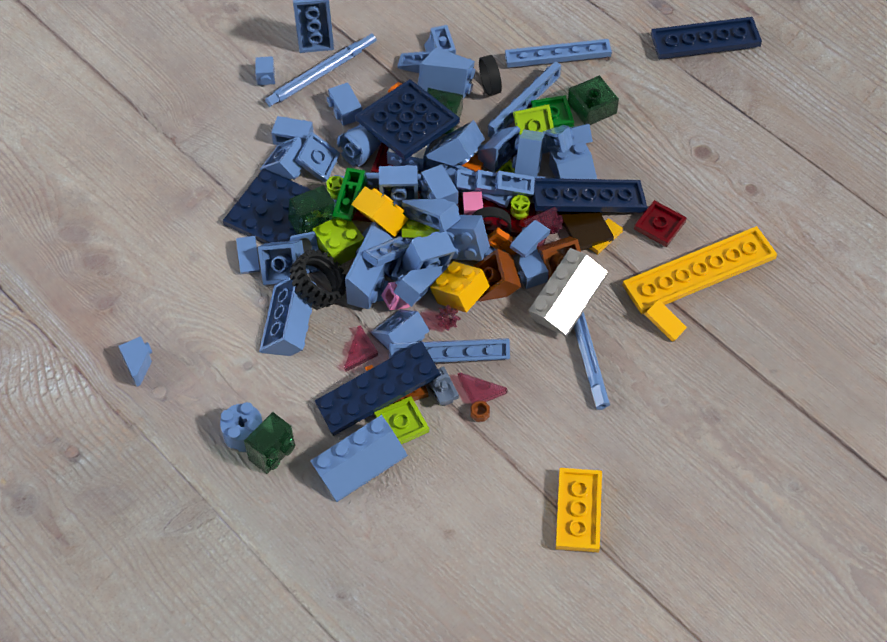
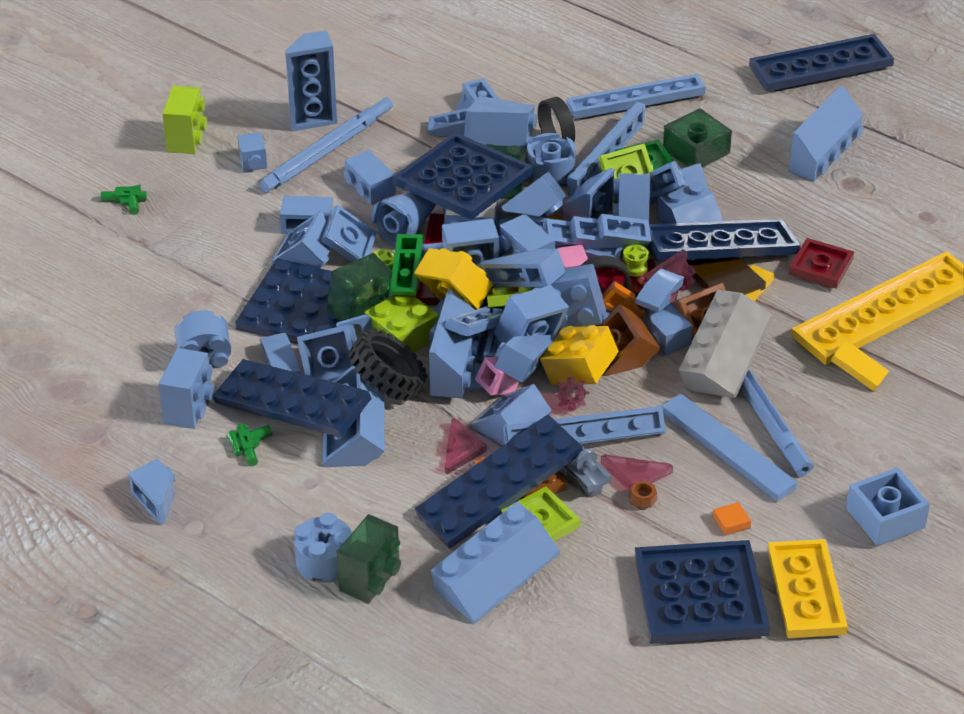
camera: 10 degrees left, 15 degrees down
(169, 97) = (126, 196): none -> green piece
(173, 278) = (186, 388): none -> medium blue brick
(193, 237) = (205, 333): none -> medium blue brick
(210, 324) = (247, 441): none -> green piece
(220, 38) = (184, 119): none -> lime brick
(246, 296) = (292, 397): none -> dark blue plate
(479, 105) = (551, 155): none -> medium blue brick
(502, 501) = (701, 591): none -> dark blue plate
(540, 440) = (731, 518): none -> orange tile
(553, 378) = (729, 447): none -> medium blue tile
(654, 450) = (887, 506): none -> medium blue brick
(690, 109) = (825, 135): none -> medium blue slope

